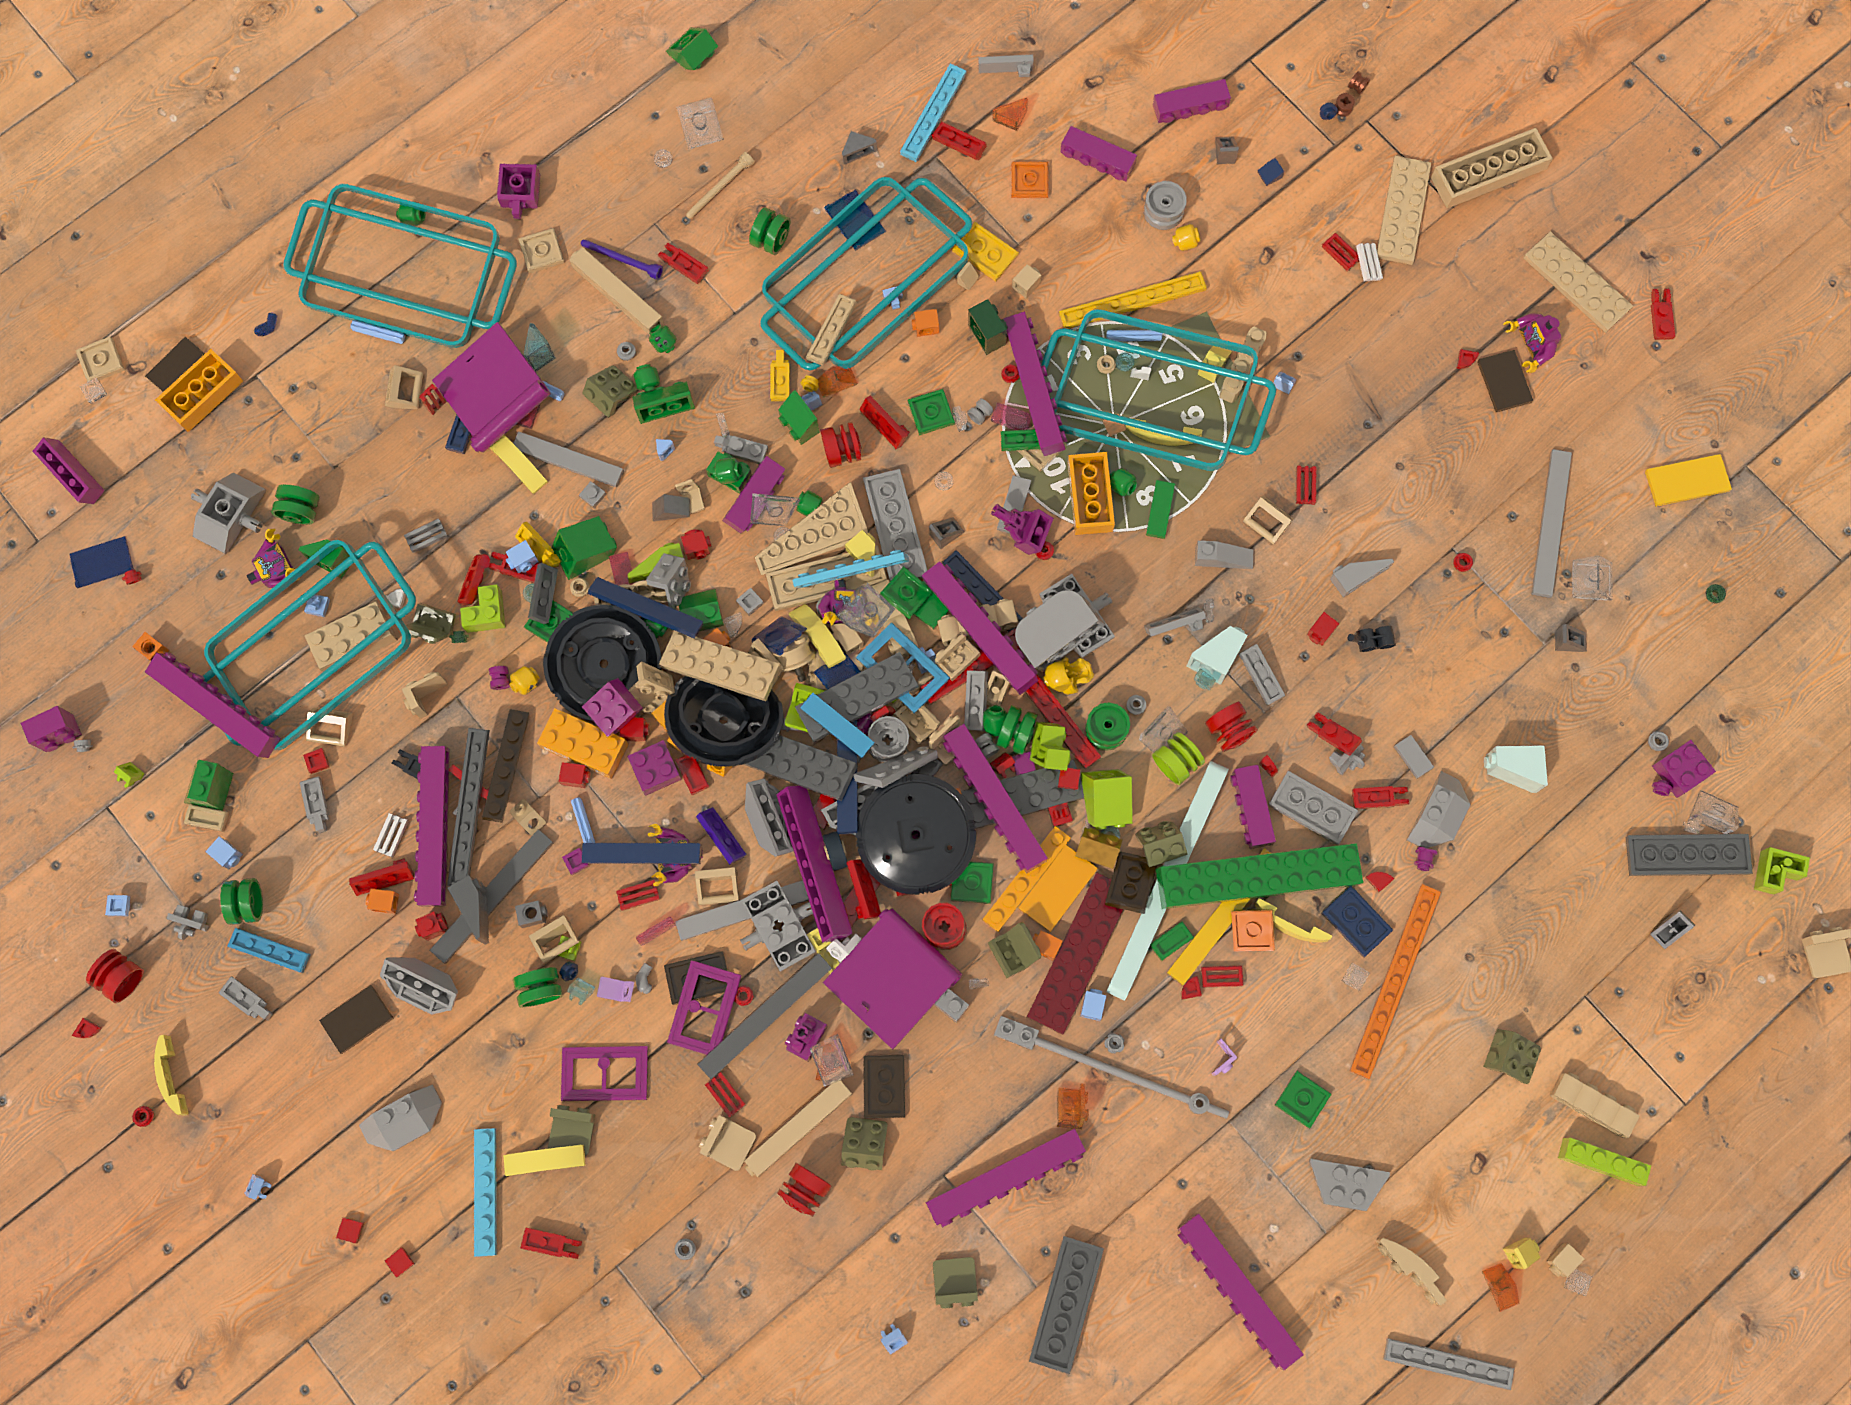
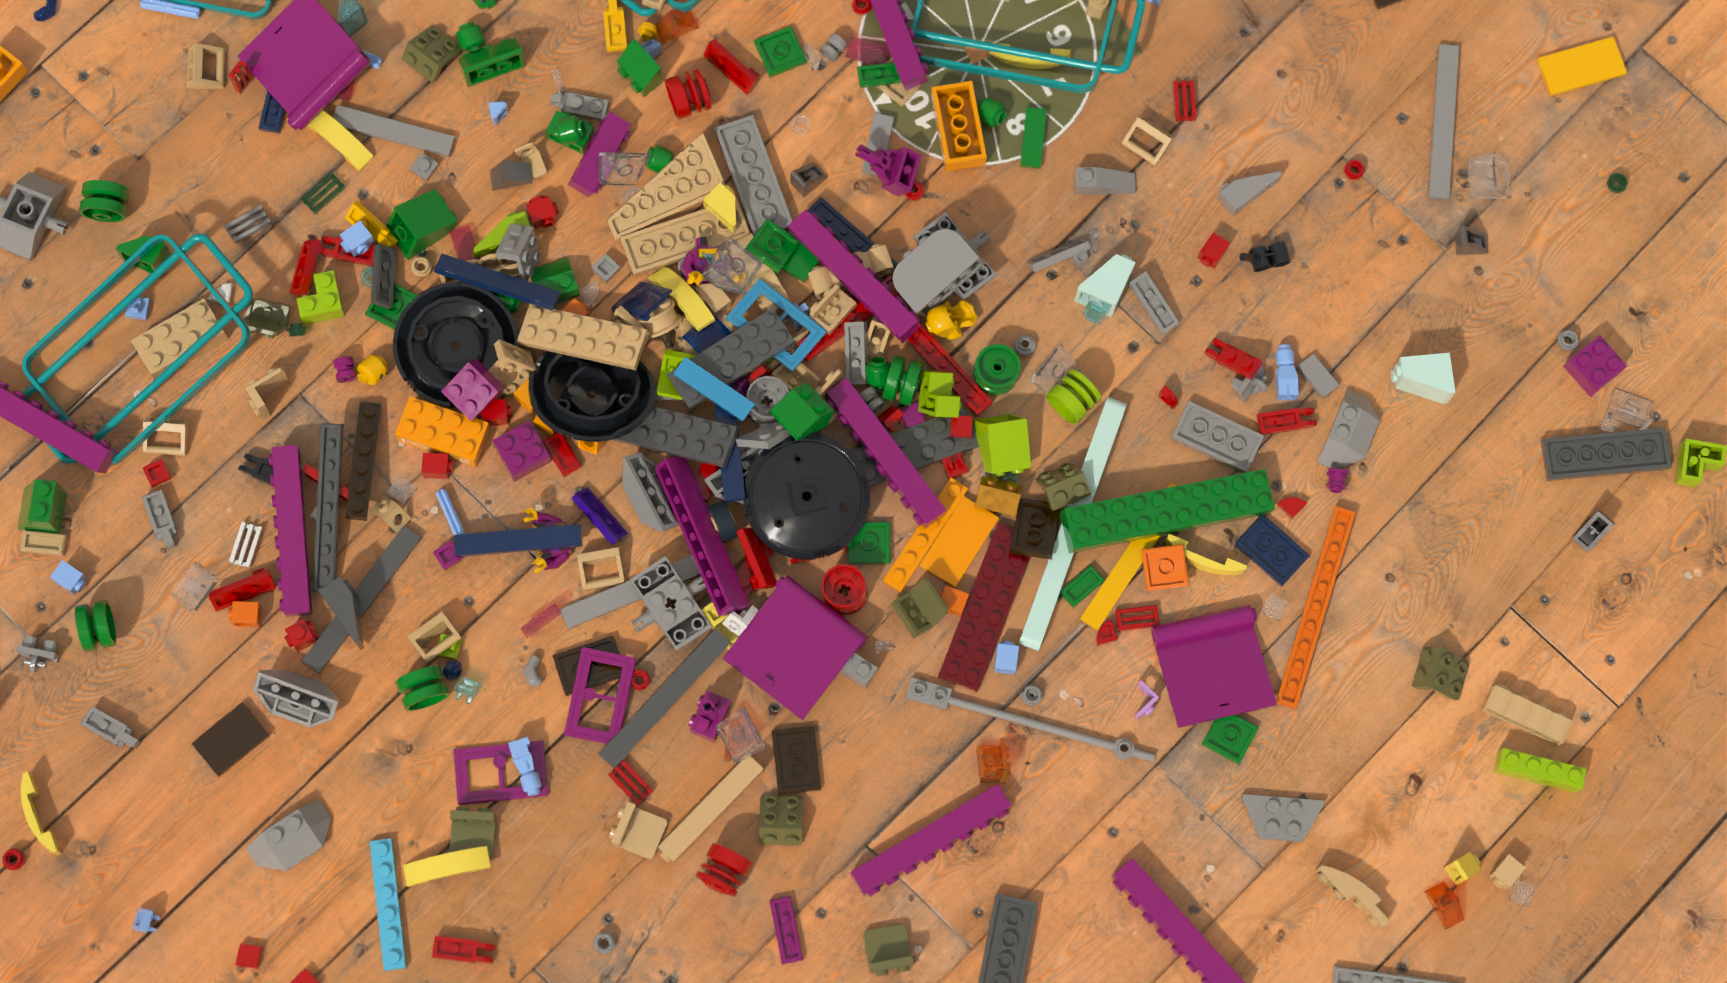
camera: 15 degrees left, 0 degrees up
(268, 950) = (128, 676): dark azure tile -> none
(270, 562) = (83, 266): torso -> none
(336, 872) = (194, 587): none -> clear slope
(493, 506) = (317, 188): none -> clear green tile
(523, 910) = (398, 609): flat silver brick -> none
(540, 796) = (402, 490): none -> clear plate
(615, 989) = (504, 685): lavender bracket -> none
(627, 1070) = (524, 763): none -> light blue piece
(628, 355) = (445, 14): light grey plate -> none
(634, 888) = (514, 578): red tile -> none
(858, 567) = (720, 222): medium azure plate -> none
(859, 1252) = (786, 930): none -> magenta tile
(918, 753) = (802, 411): none -> green slope
(1231, 726) = (1124, 356): red wheel -> none
(1253, 807) = (1155, 440): magenta brick -> none
(1291, 1029) = (1213, 664): none -> magenta door
(1383, 753) = (1286, 374): none -> light blue piece
(1662, 787) = (1574, 387): magenta plate -> none

